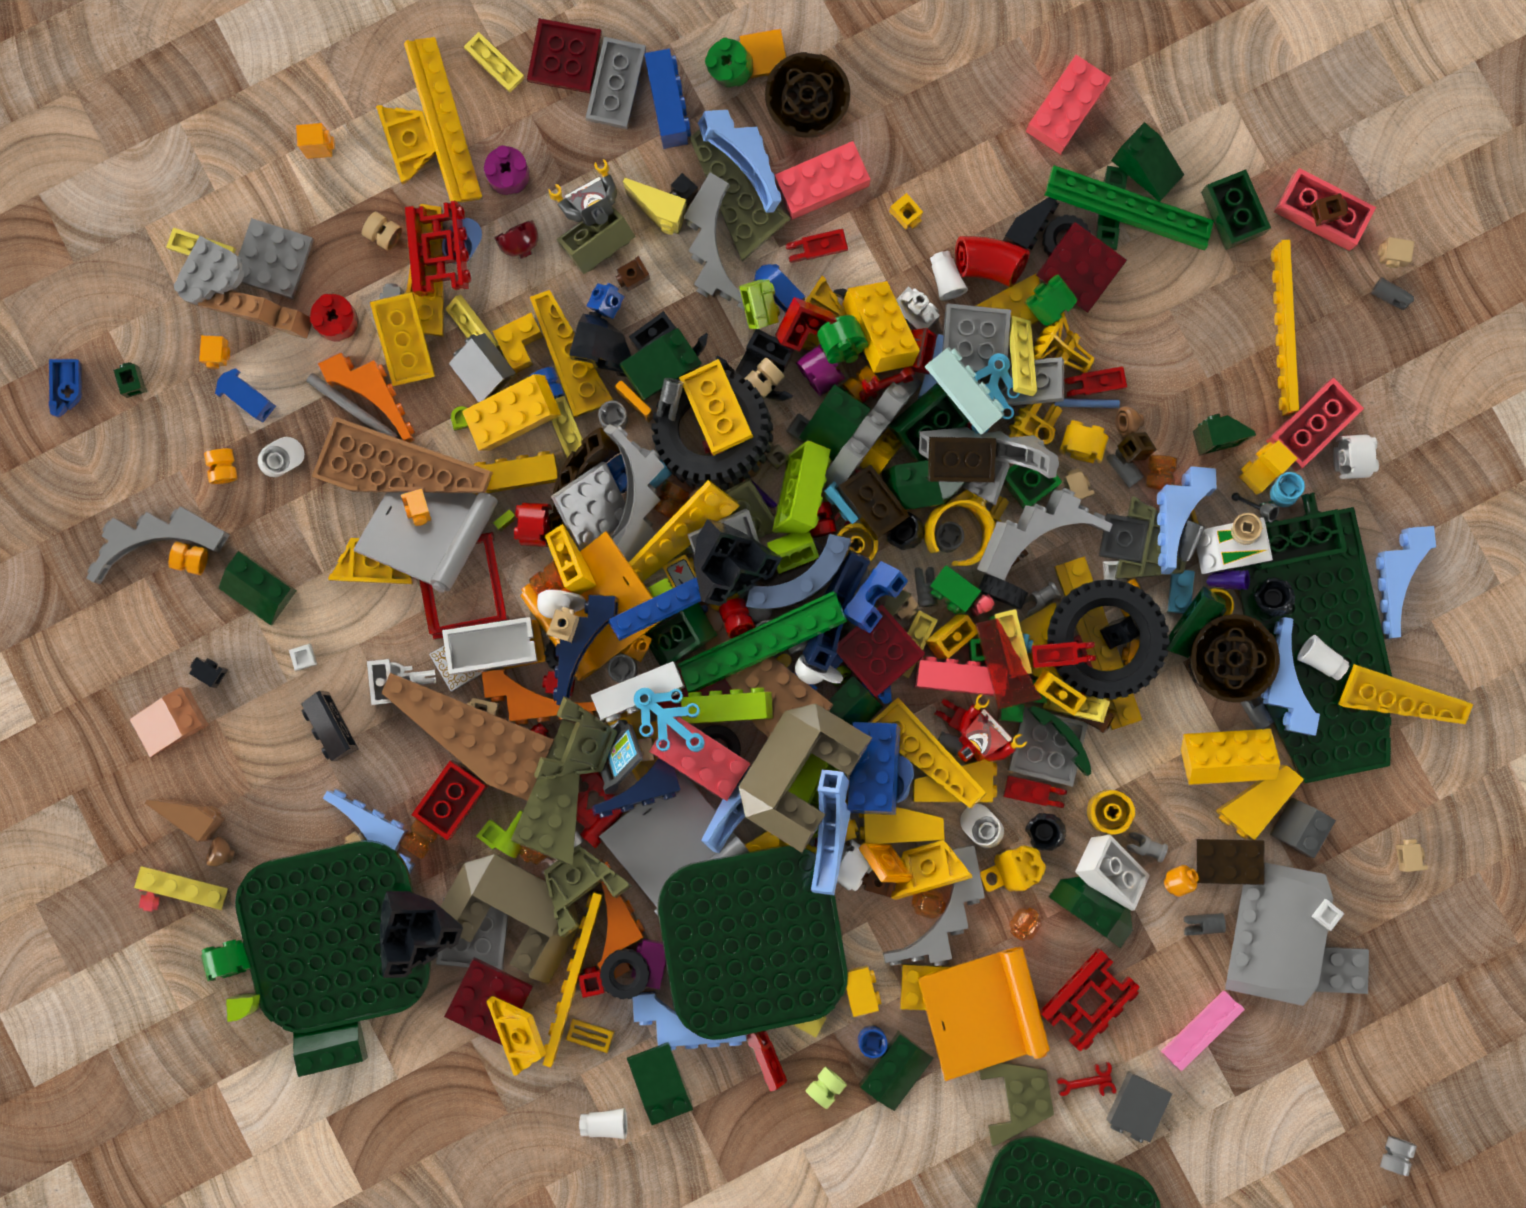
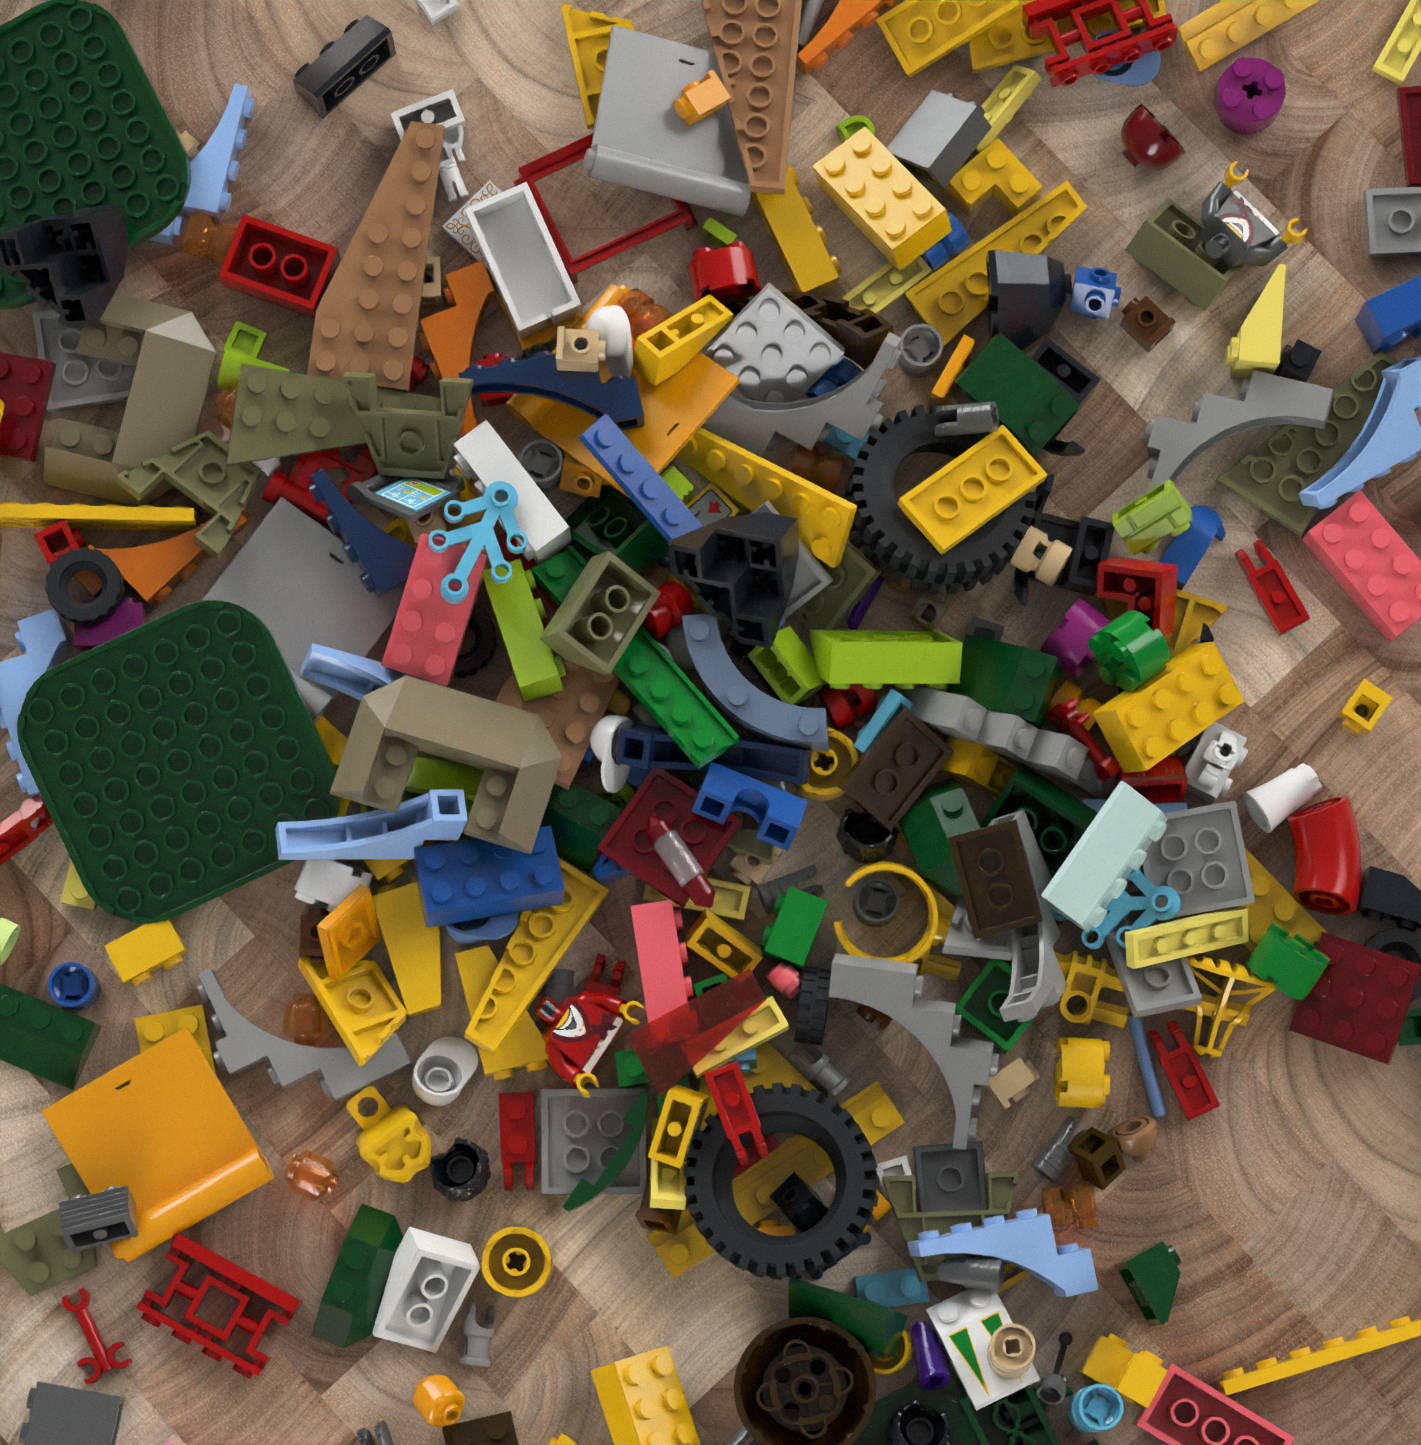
camera: 75 degrees right, 5 degrees down
(733, 656) = (600, 614): none -> olive slope
(899, 648) = (680, 861): none -> piece
(1020, 1061) = (98, 1218): none -> dark grey brick

